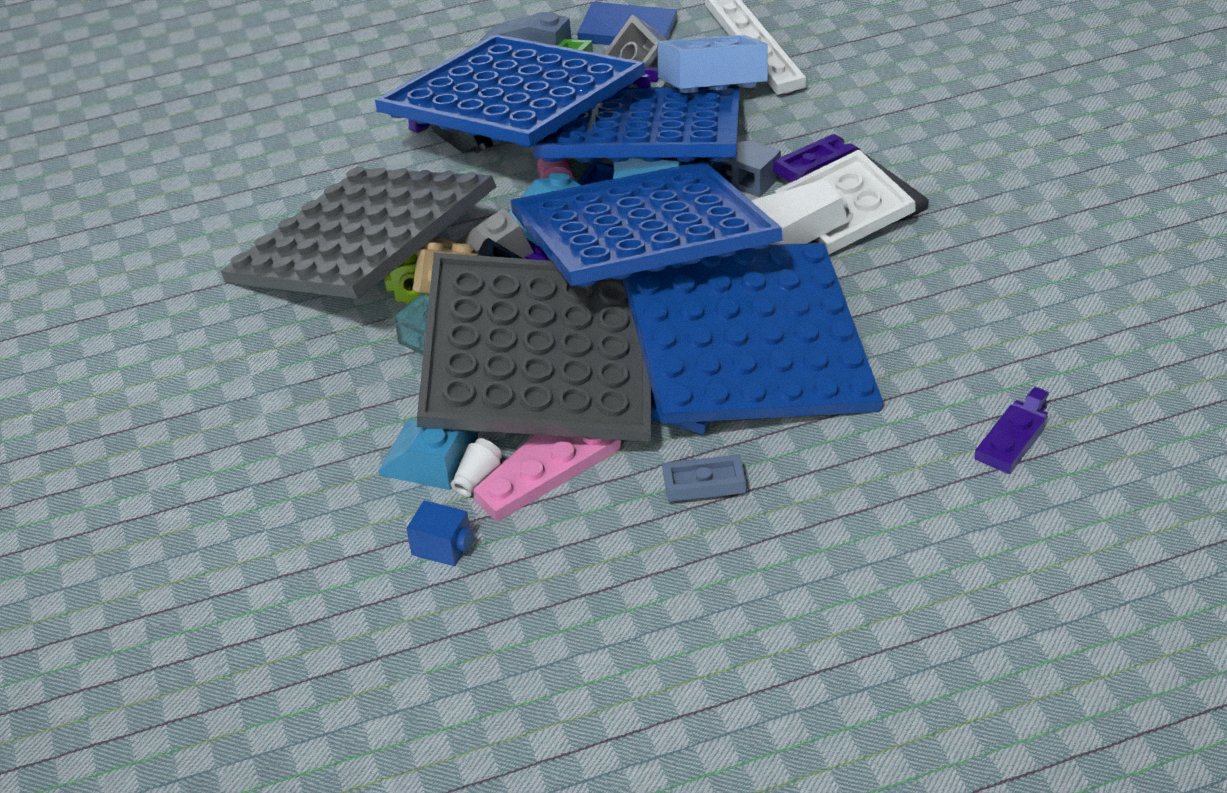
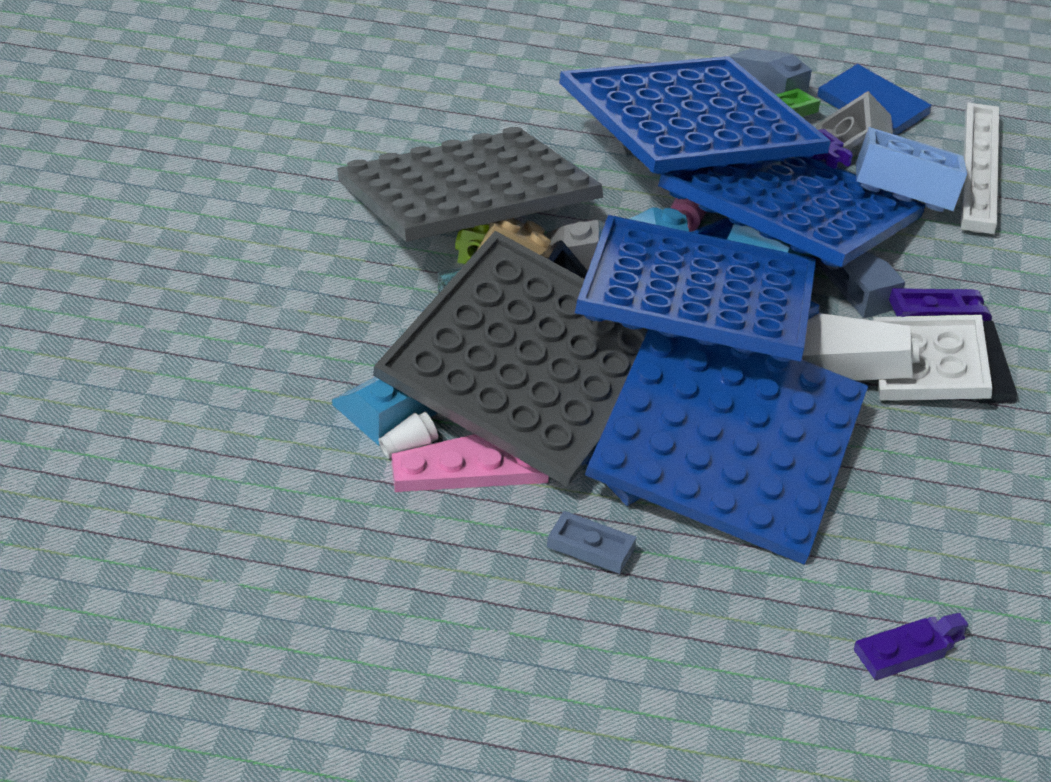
camera: 25 degrees right, 0 degrees up
(439, 533) = (334, 475): blue brick -> none

